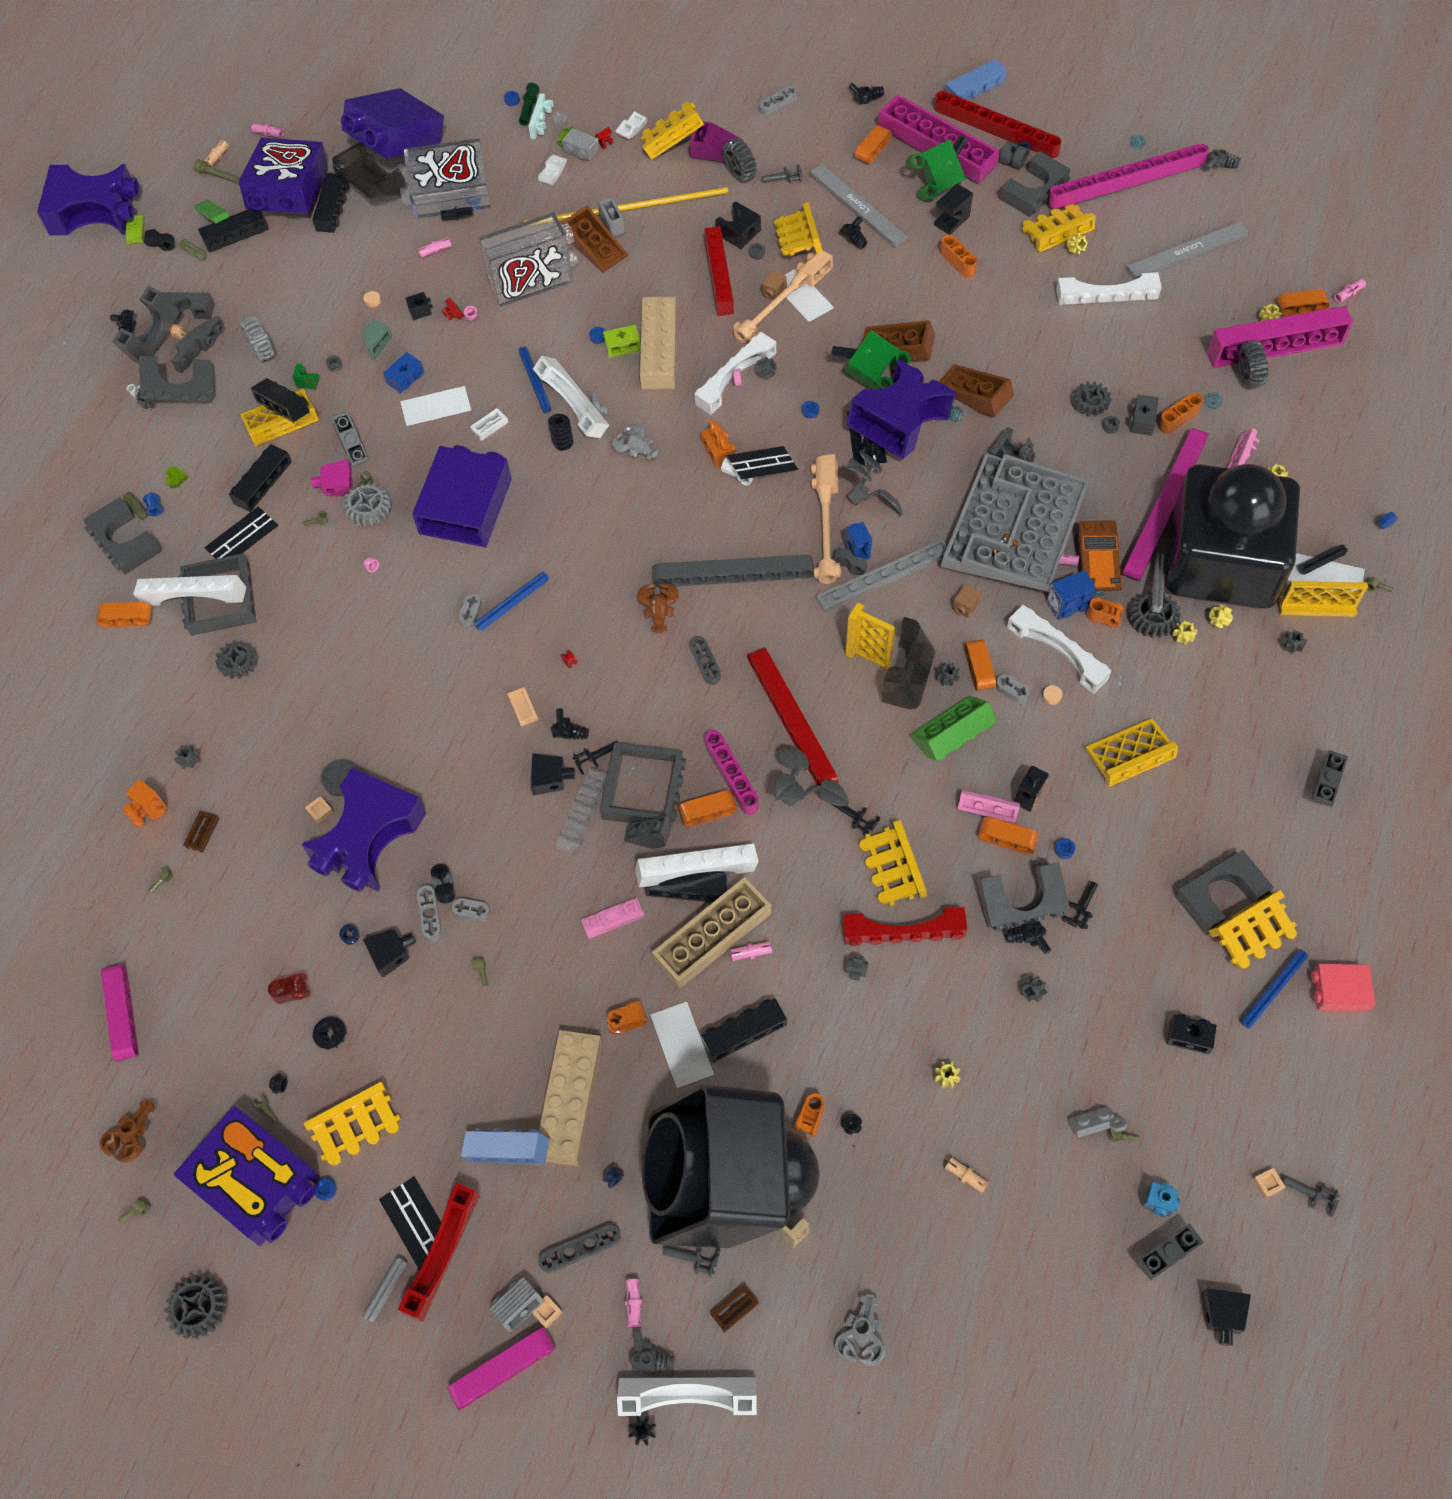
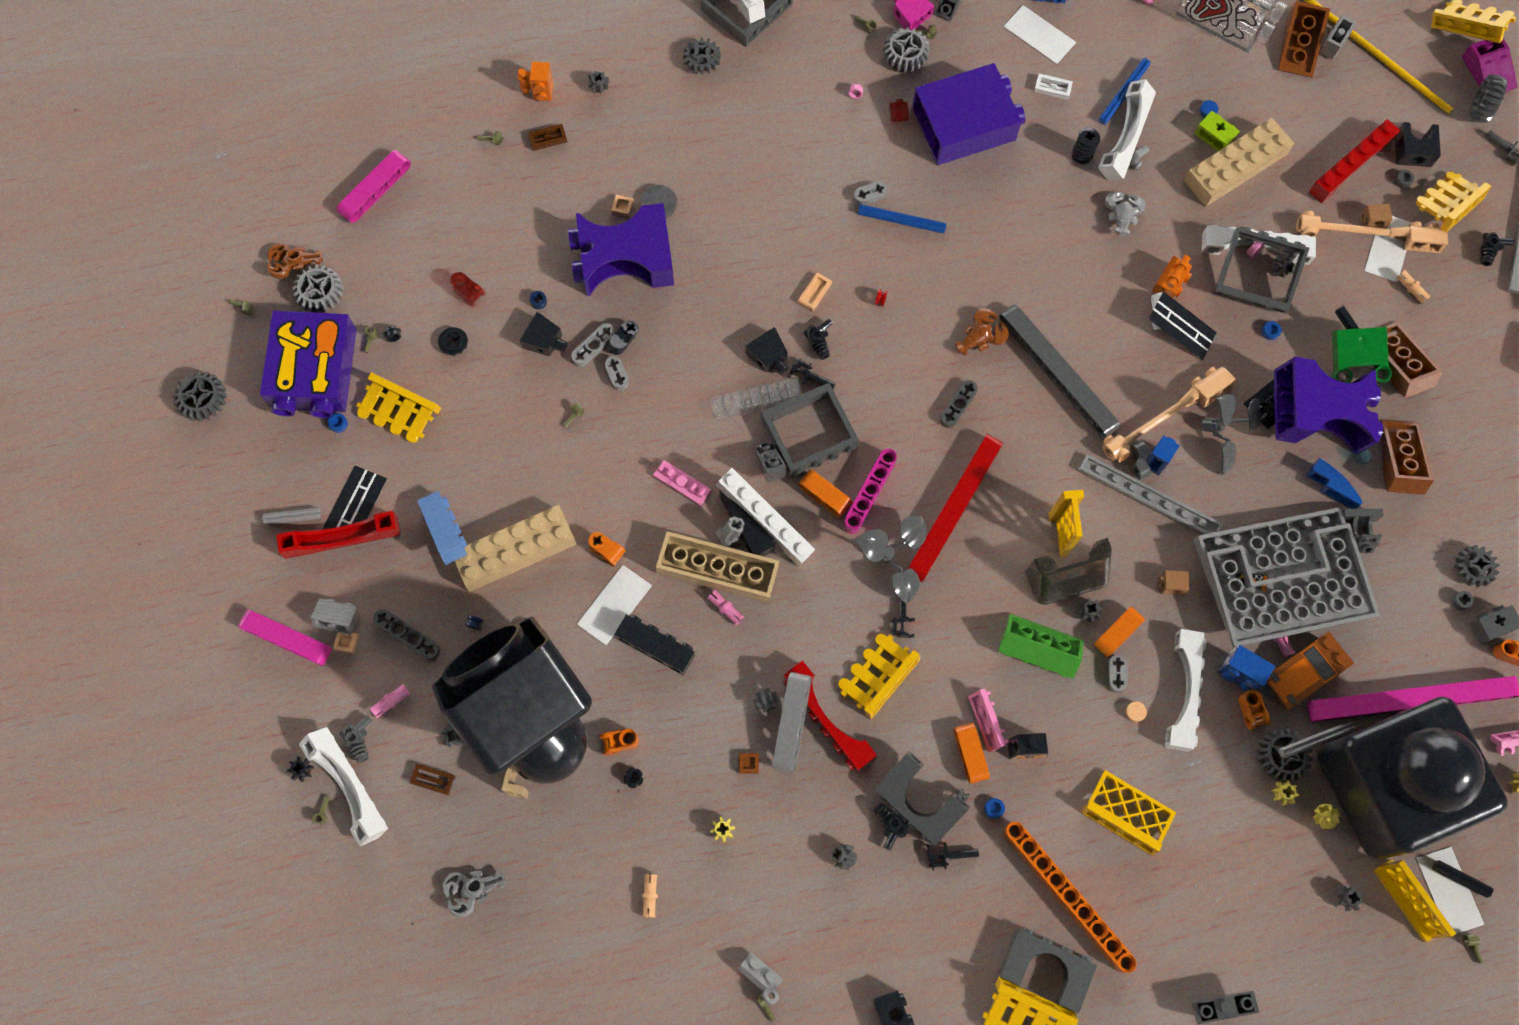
camera: 50 degrees right, 10 degrees up
(176, 1110) = (312, 298): none -> light grey gear
(415, 544) = (899, 111): none -> clear red tile
(689, 905) = (730, 532): none -> light grey piece
(695, 1435) = (322, 812): none -> olive hand
(749, 354) = (1263, 238): none -> dark grey window
(846, 299) = (1413, 286): none -> light nougat pin
(892, 956) = (791, 722): none -> light grey beam
(901, 1018) = (748, 763): none -> dark orange tile
(964, 446) = (1334, 484): none -> blue slope
(1181, 832) = (1078, 900): none -> orange beam

